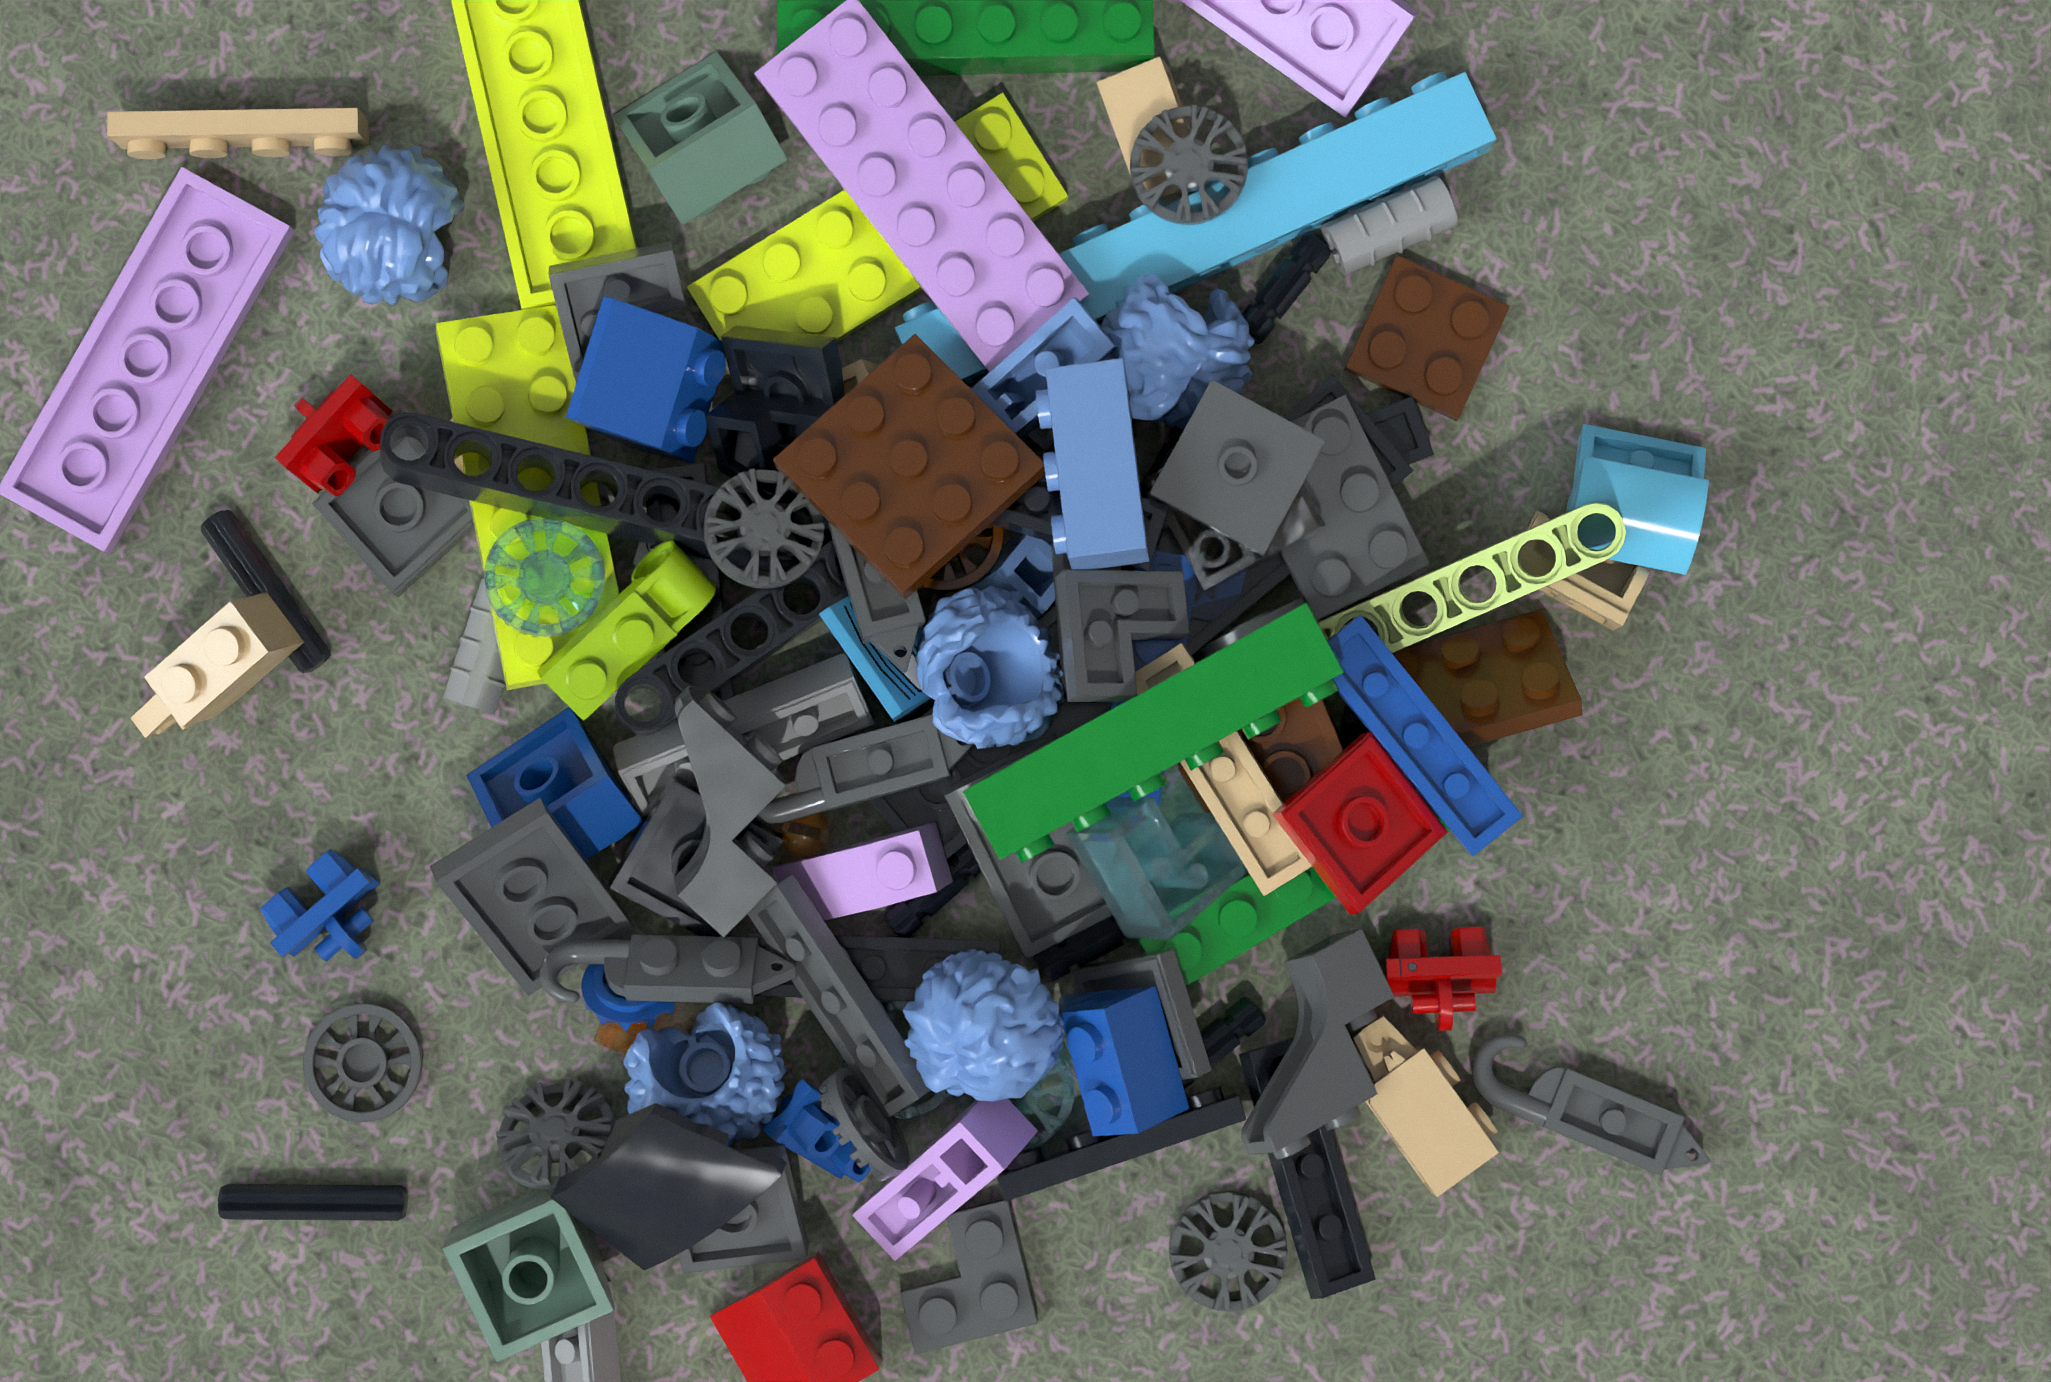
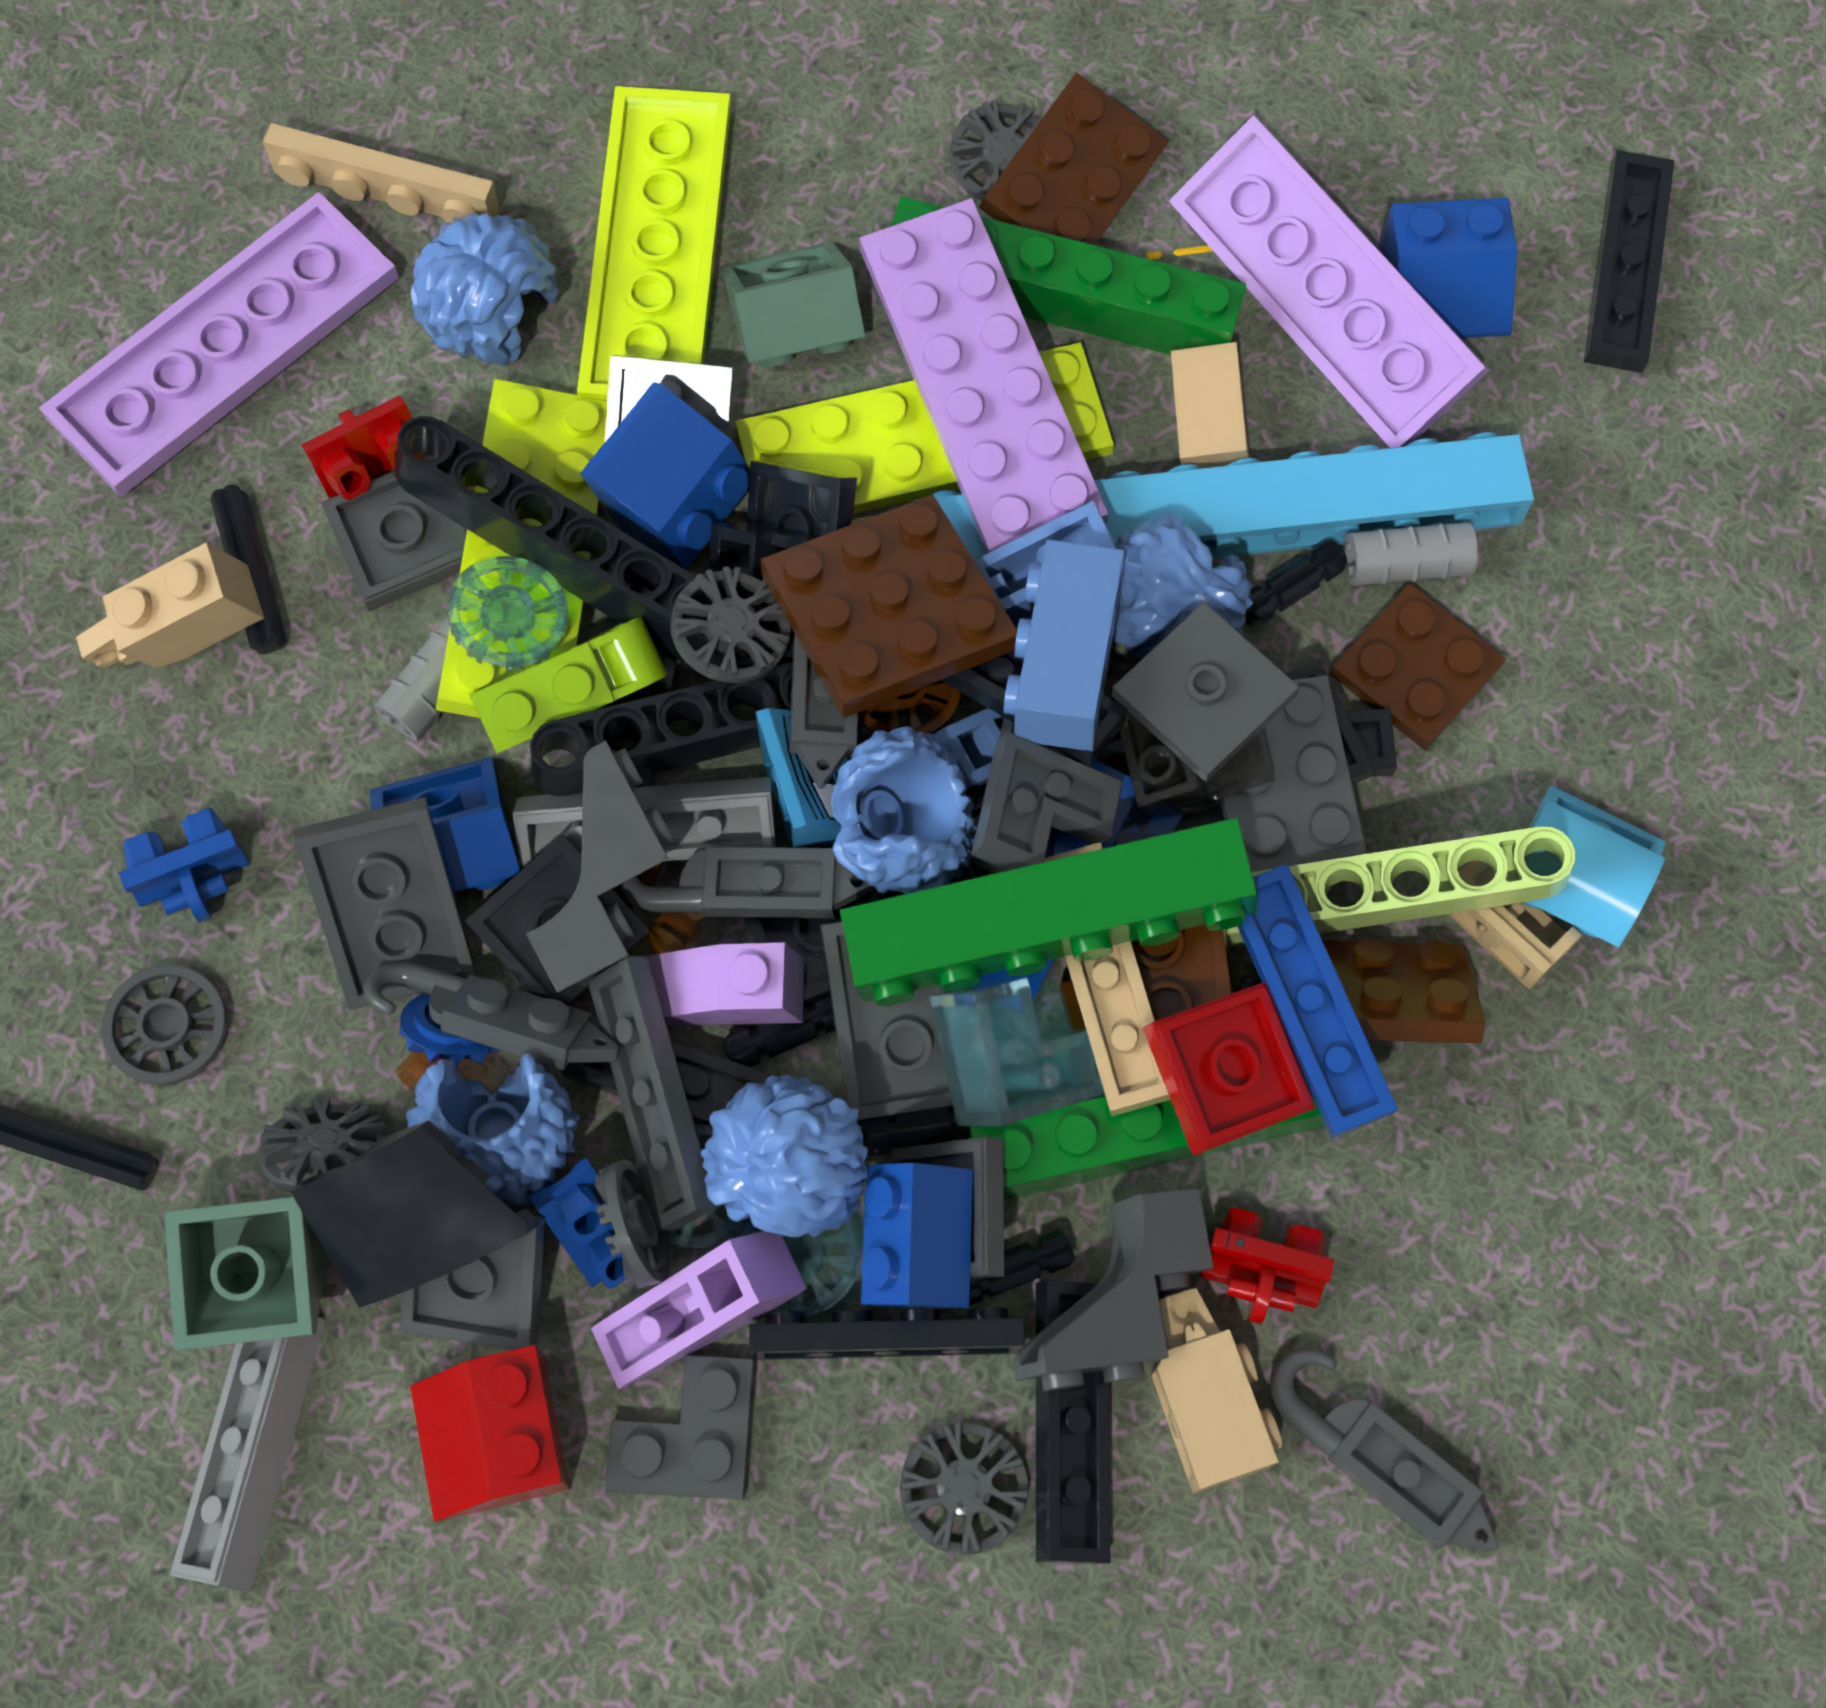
camera: 15 degrees right, 15 degrees down
(1188, 165) = (1236, 436): dark grey wheel -> none

